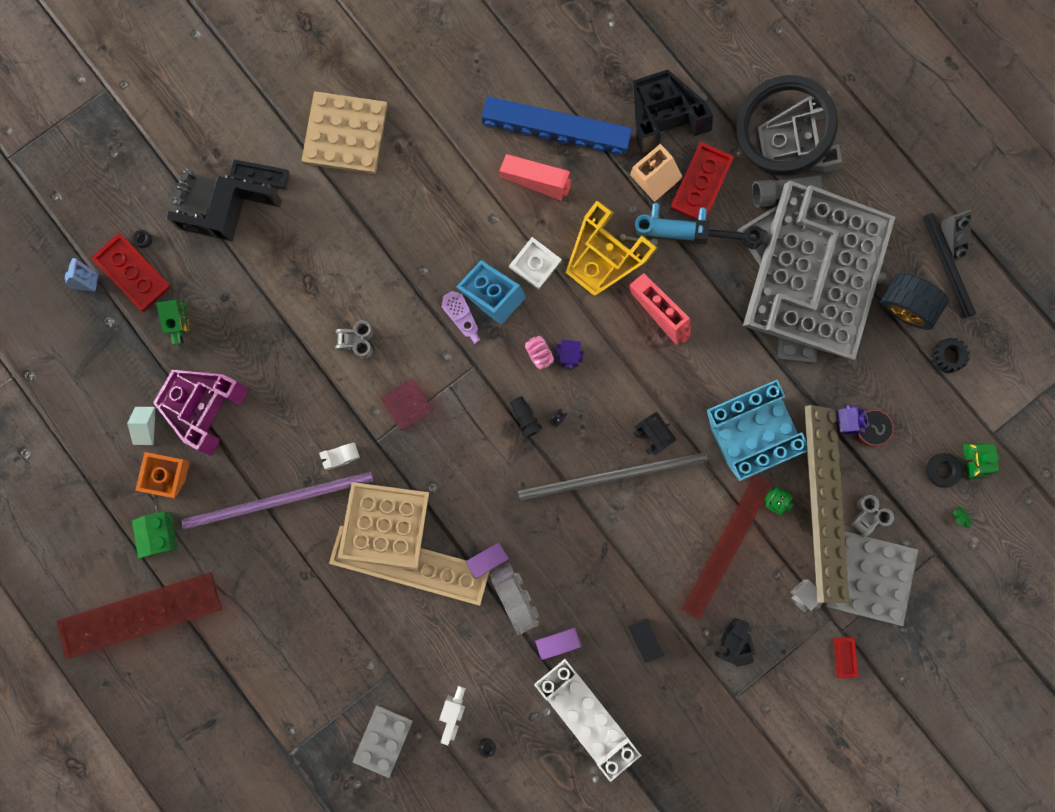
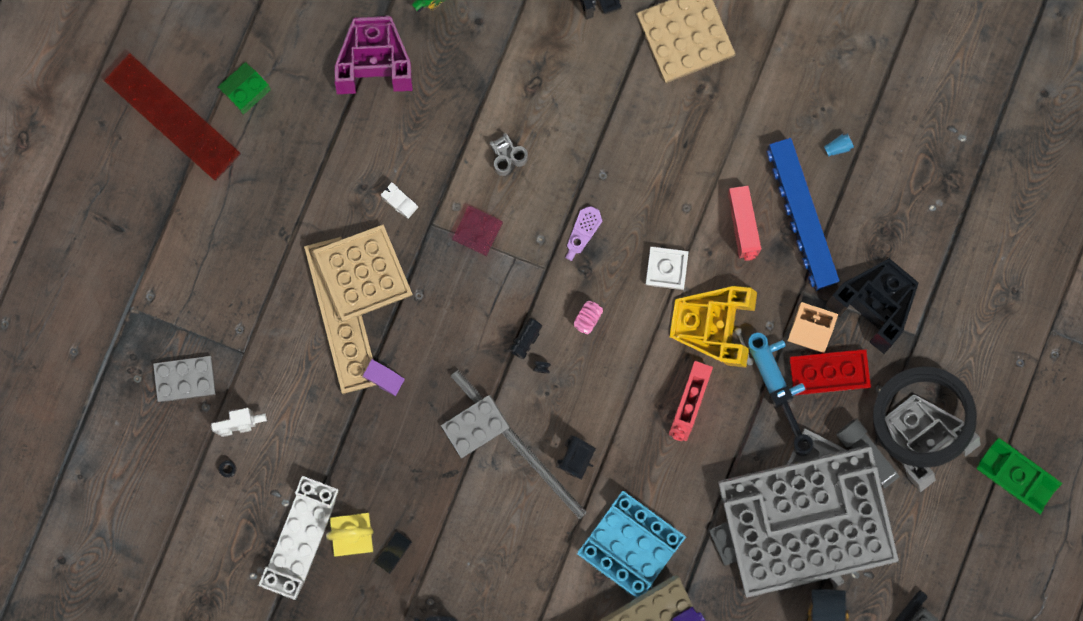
camera: 65 degrees right, 0 degrees up
(142, 425) = (329, 21): light aqua slope -> none
(162, 475) = (297, 64): orange slope -> none
(279, 500) = (330, 171): lavender axle -> none
(492, 291) = (618, 245): dark azure slope -> none
(514, 598) = (364, 418): clear wedge -> none
(516, 62) = (839, 145): none -> dark azure cone
(558, 643) = (348, 478): medium lavender slope -> none
(569, 354) = (602, 344): dark purple brick -> none
(577, 504) = (475, 426): none -> light grey plate
(609, 669) = (351, 534): none -> light yellow tile
(726, 546) = (514, 577): clear red plate -> none
(779, 501) = (580, 600): green head -> none
(872, 84) = (1018, 475): none -> green piece

